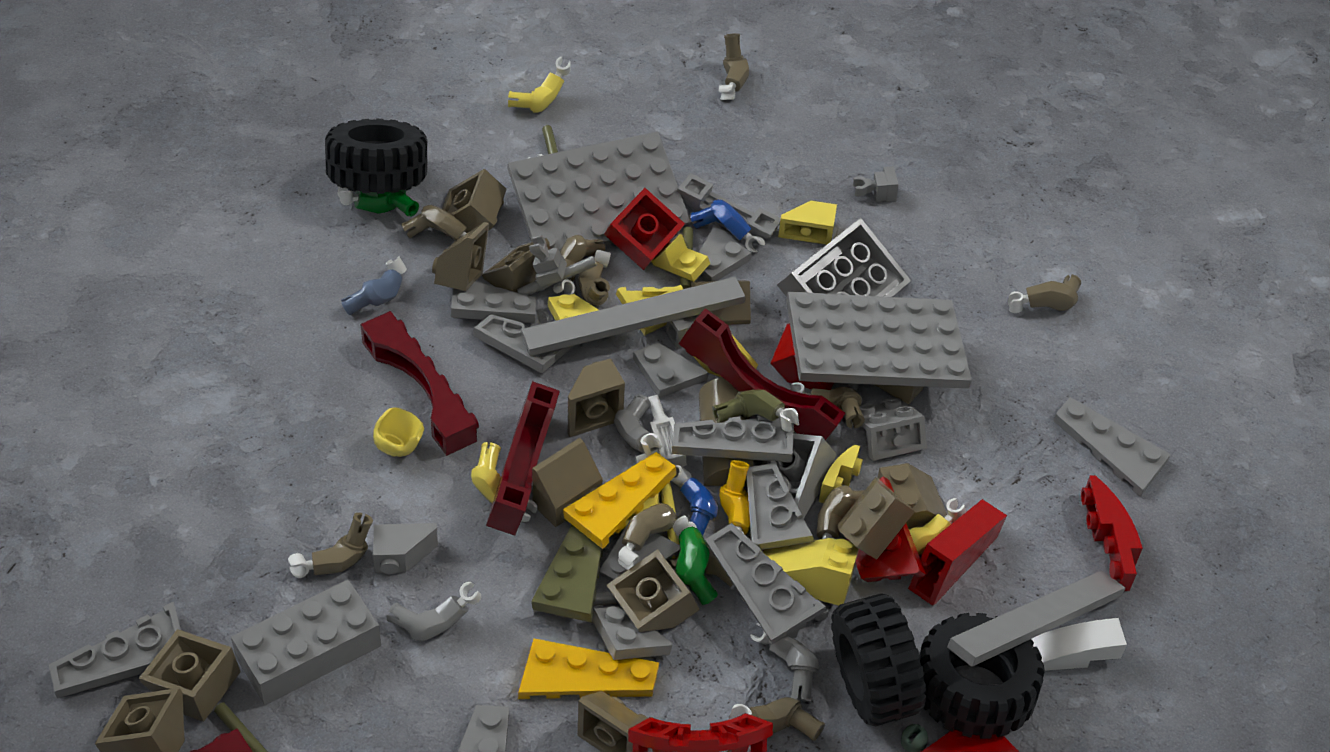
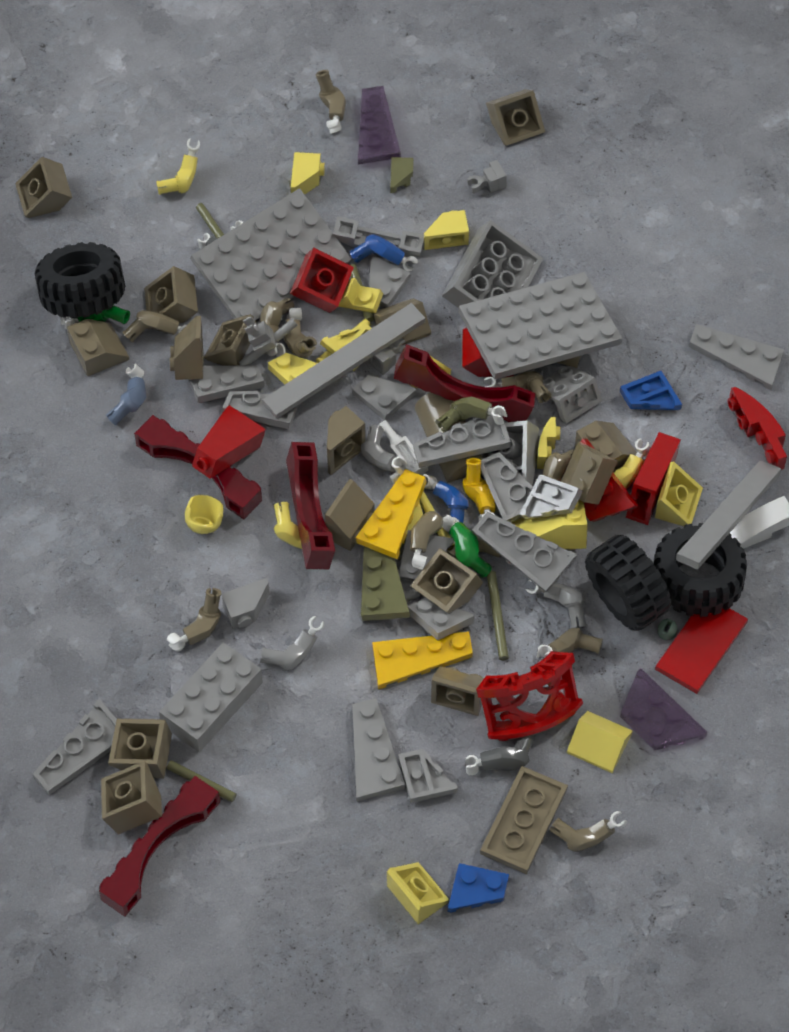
camera: 15 degrees left, 10 degrees up
(367, 228) = (96, 345): none -> dark tan slope
(388, 67) = (43, 188): none -> dark tan slope
(458, 363) = (227, 442): none -> red slope
(677, 125) = (306, 171): none -> light yellow slope
(702, 656) = (497, 616): none -> olive bar
(771, 107) = (377, 131): none -> clear purple wing
(781, 154) = (401, 172): none -> olive slope
(815, 531) = (550, 498): none -> light grey wing
(932, 134) = (516, 116): none -> dark tan slope
(981, 580) = (678, 497): none -> light yellow slope
(988, 456) = (651, 393): none -> blue wing
(1048, 294) = (657, 239): dark tan arm -> none

